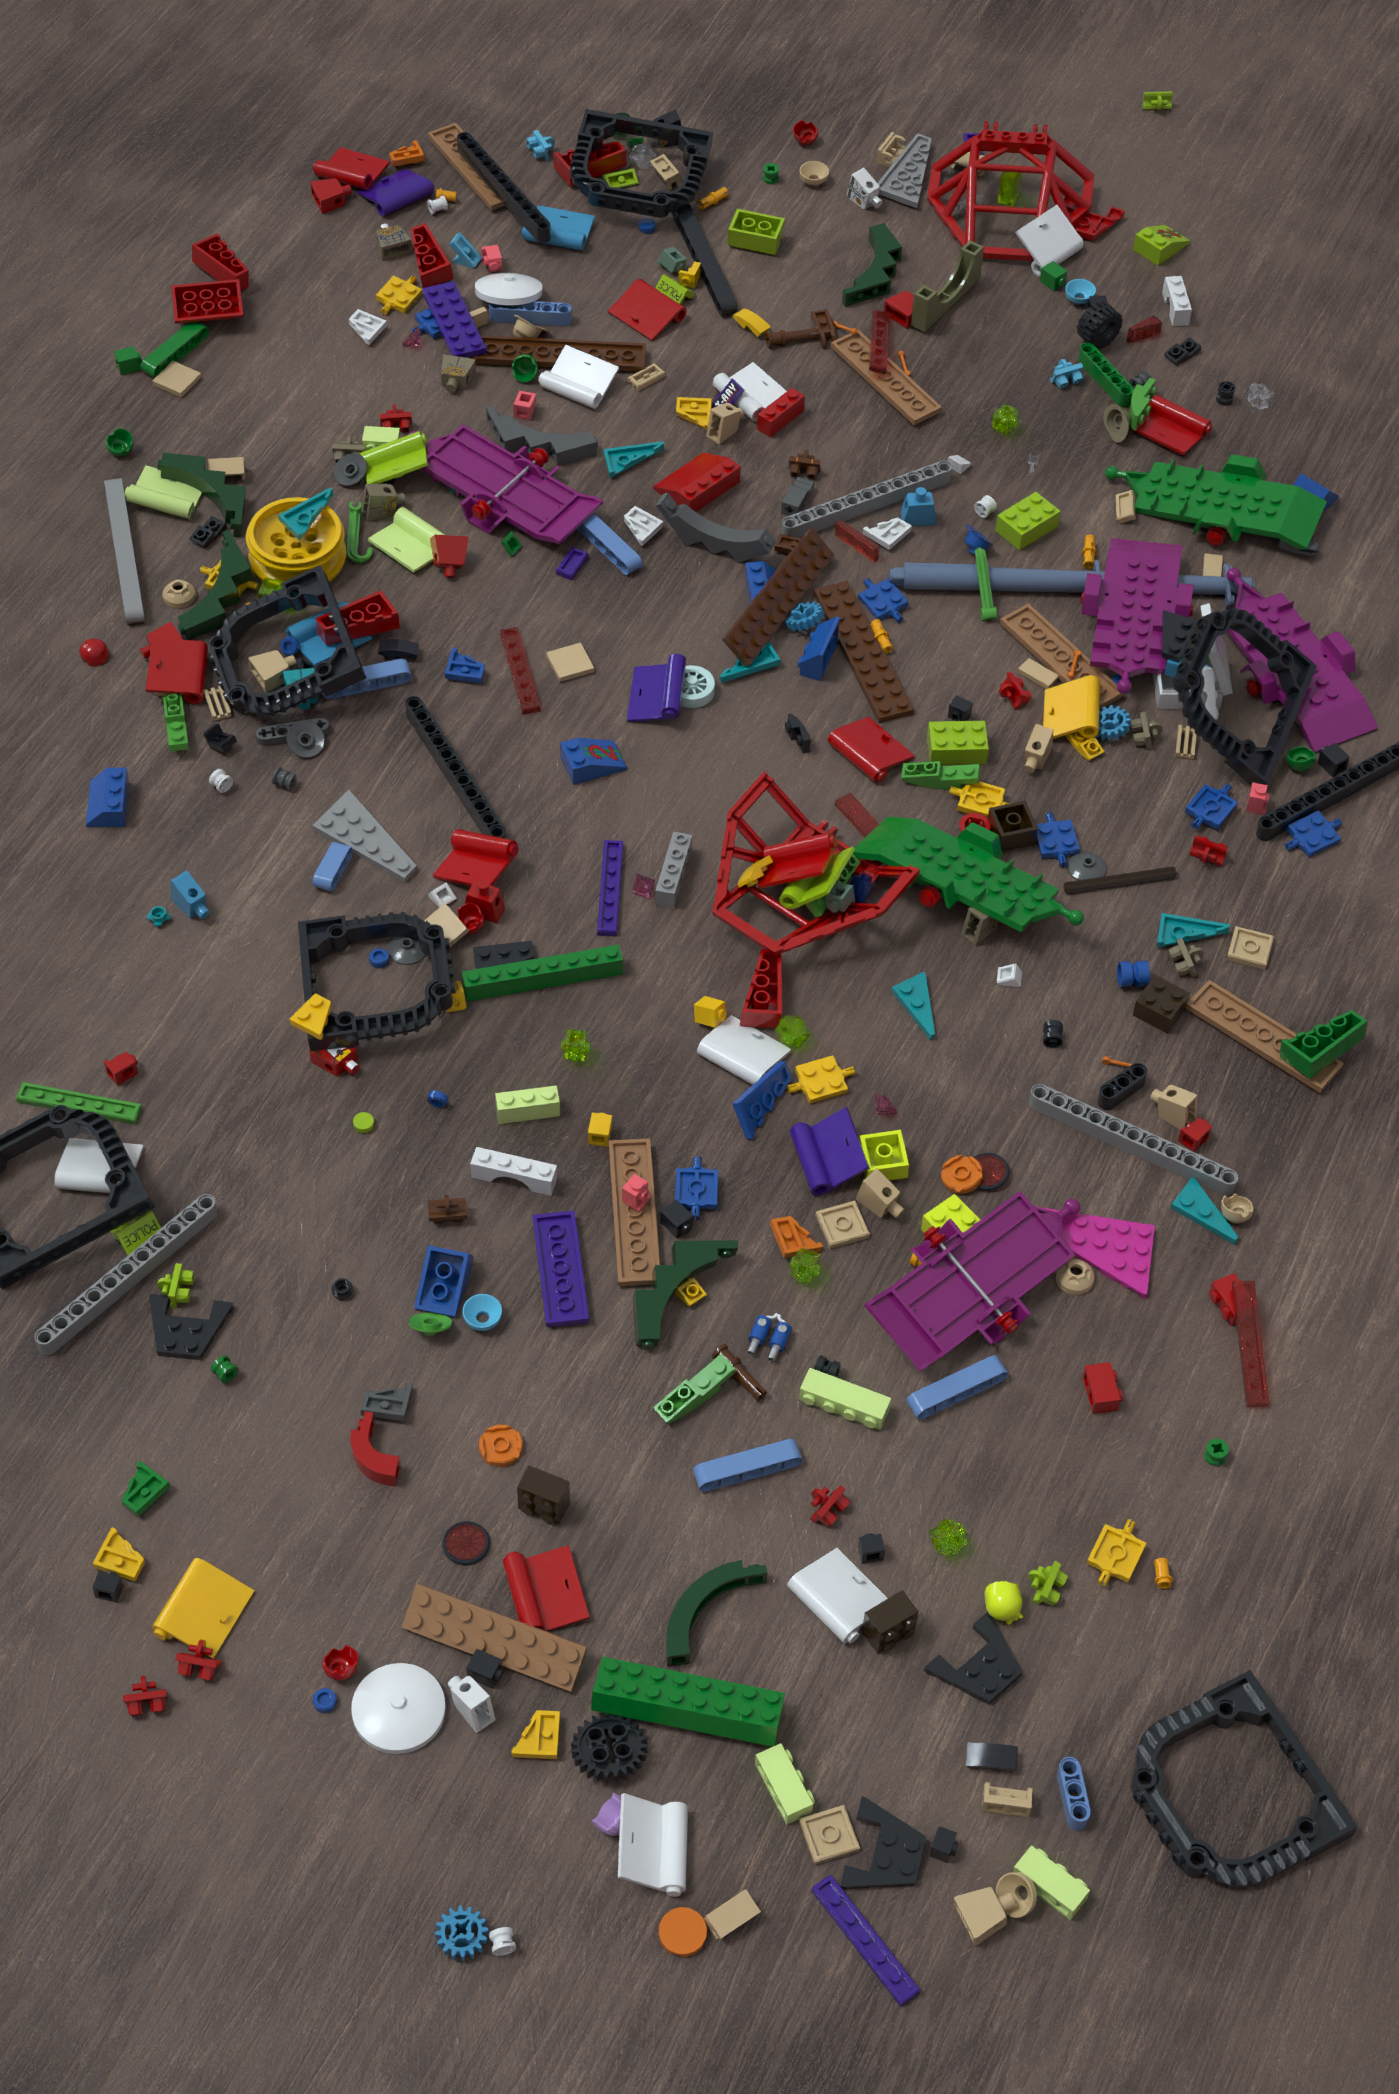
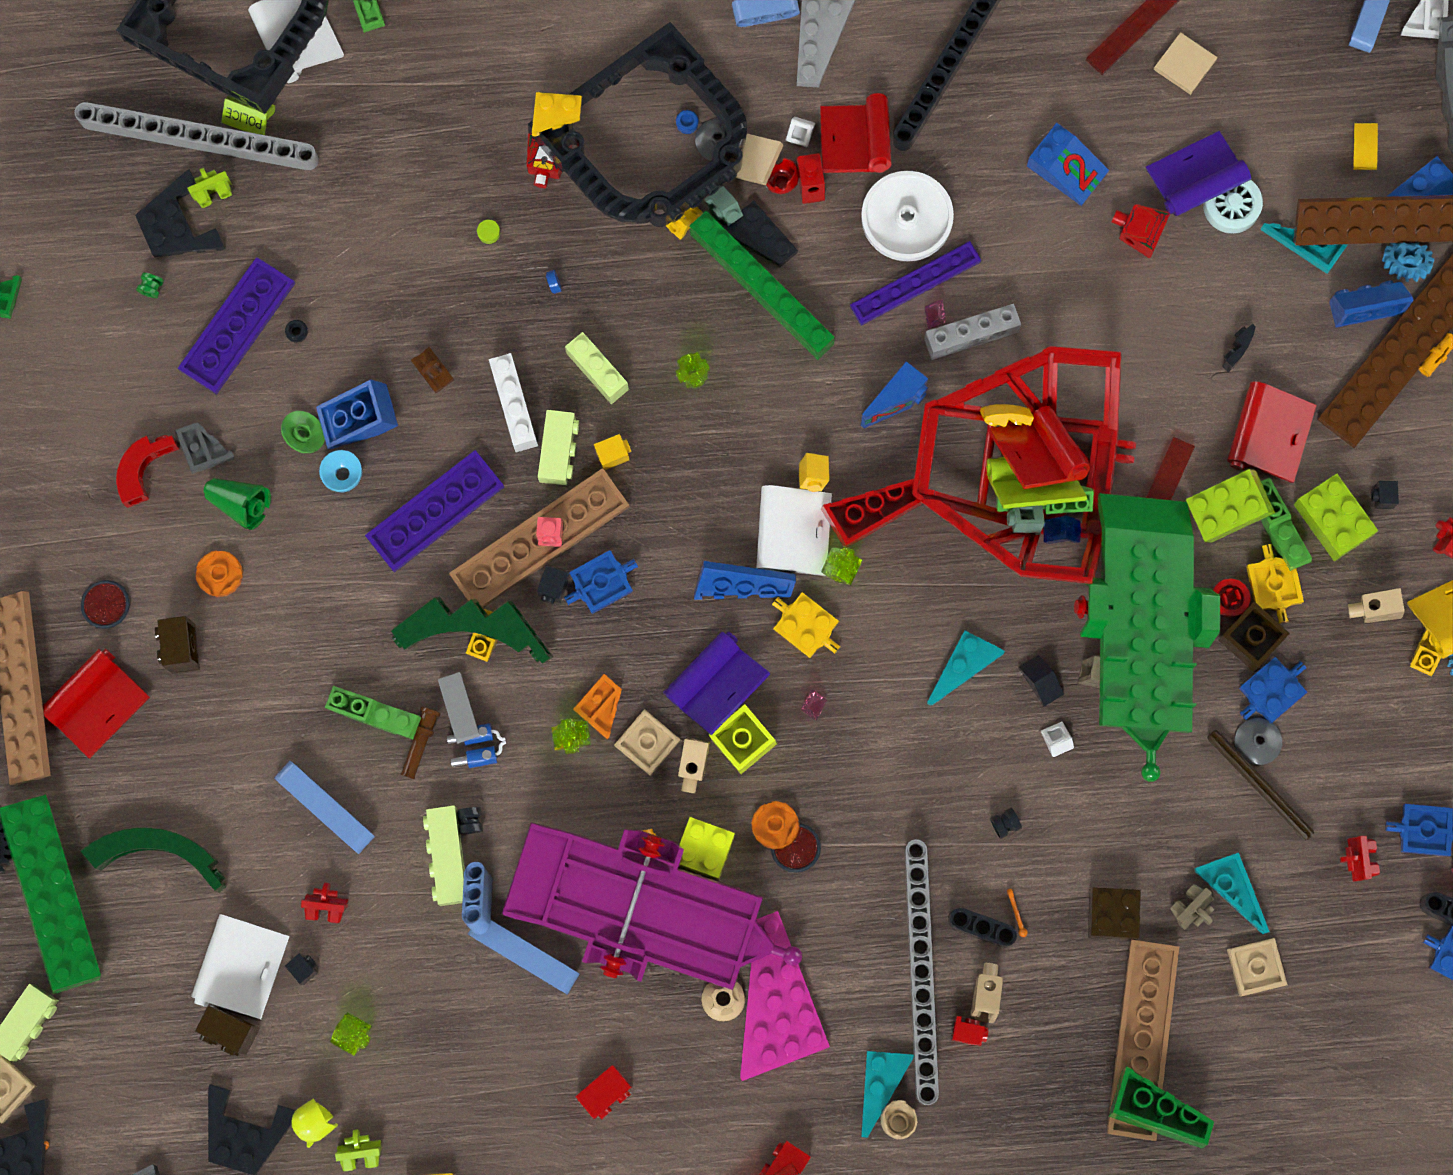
camera: 65 degrees right, 25 degrees up
(306, 1327) = (236, 325): none -> dark purple plate
(451, 1395) = (239, 500): none -> green cone
(465, 961) = (724, 206): none -> sand green brick
(559, 861) = (907, 216): none -> white dish
(571, 1162) = (558, 447): none -> yellowish green brick
(671, 741) = (1141, 227): none -> red torso
(687, 929) = (898, 395): none -> blue slope
(707, 598) = (1365, 146): none -> yellow slope
(731, 1329) = (458, 707): none -> light grey tile
(904, 1388) = (481, 907): none -> medium blue beam
(910, 788) = (1230, 506): none -> lime brick
(959, 961) = (1041, 680): none -> black slope
(1133, 973) = (1135, 864): blue wheel -> none

